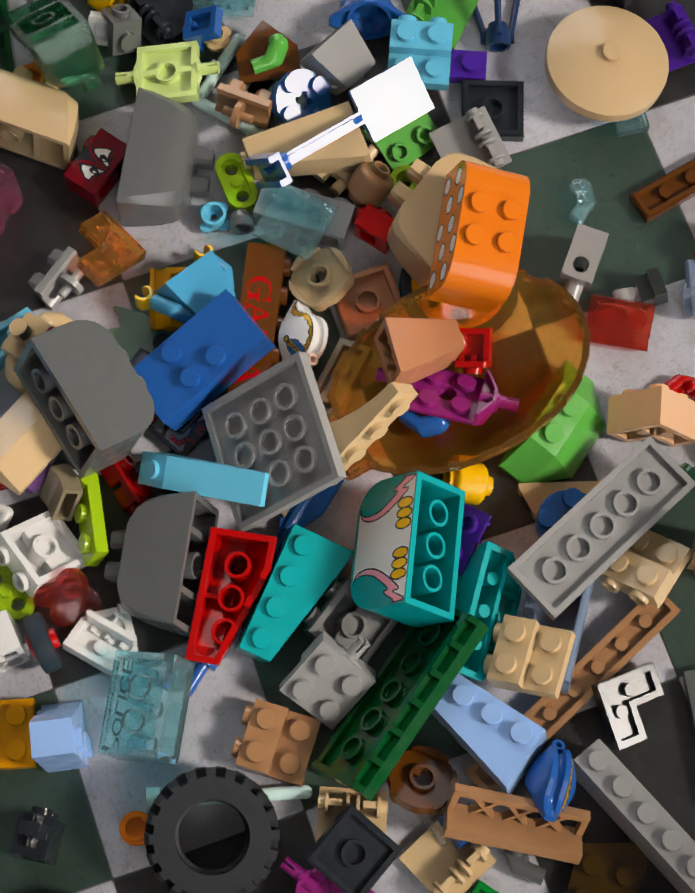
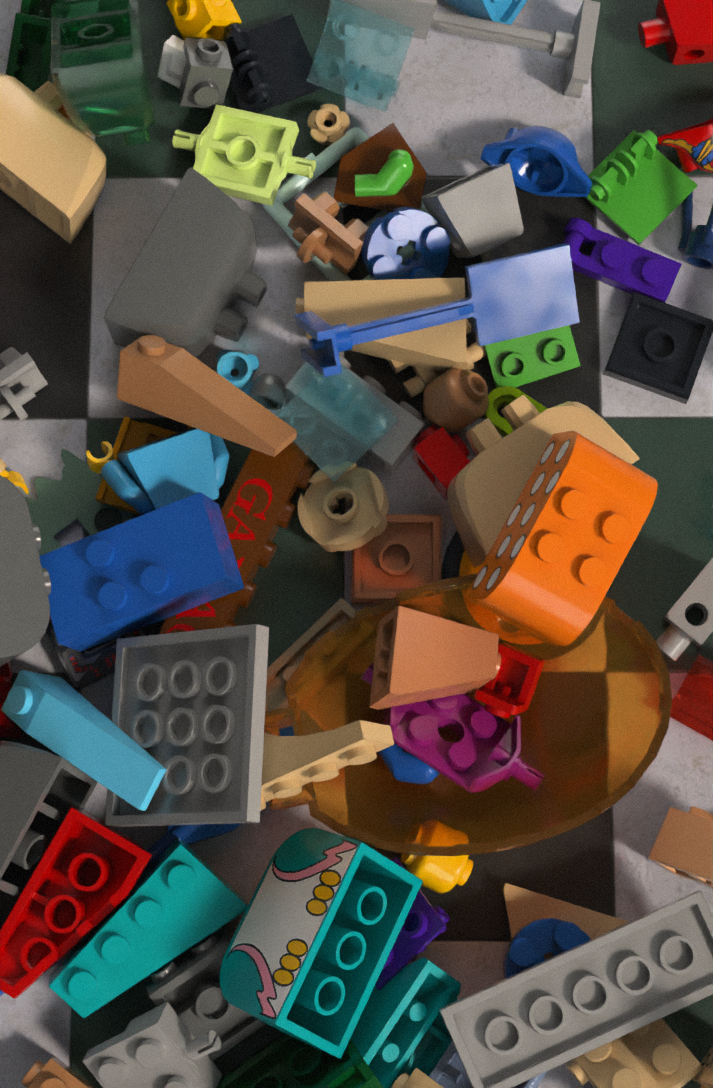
camera: 20 degrees right, 5 degrees up
(96, 168) = (103, 253): dark red brick -> none
(114, 249) = (87, 378): clear orange plate -> none
(187, 231) = (188, 391): none -> medium nougat wedge
(203, 25) = (311, 104): blue bracket -> none
(236, 185) = (280, 337): lime plate -> none
(302, 333) = (287, 583): white hat -> none
(427, 45) = (598, 234): medium azure plate -> none
(474, 136) = (614, 385): light grey hinge -> none
(561, 444) = (590, 853): bright green wedge -> none

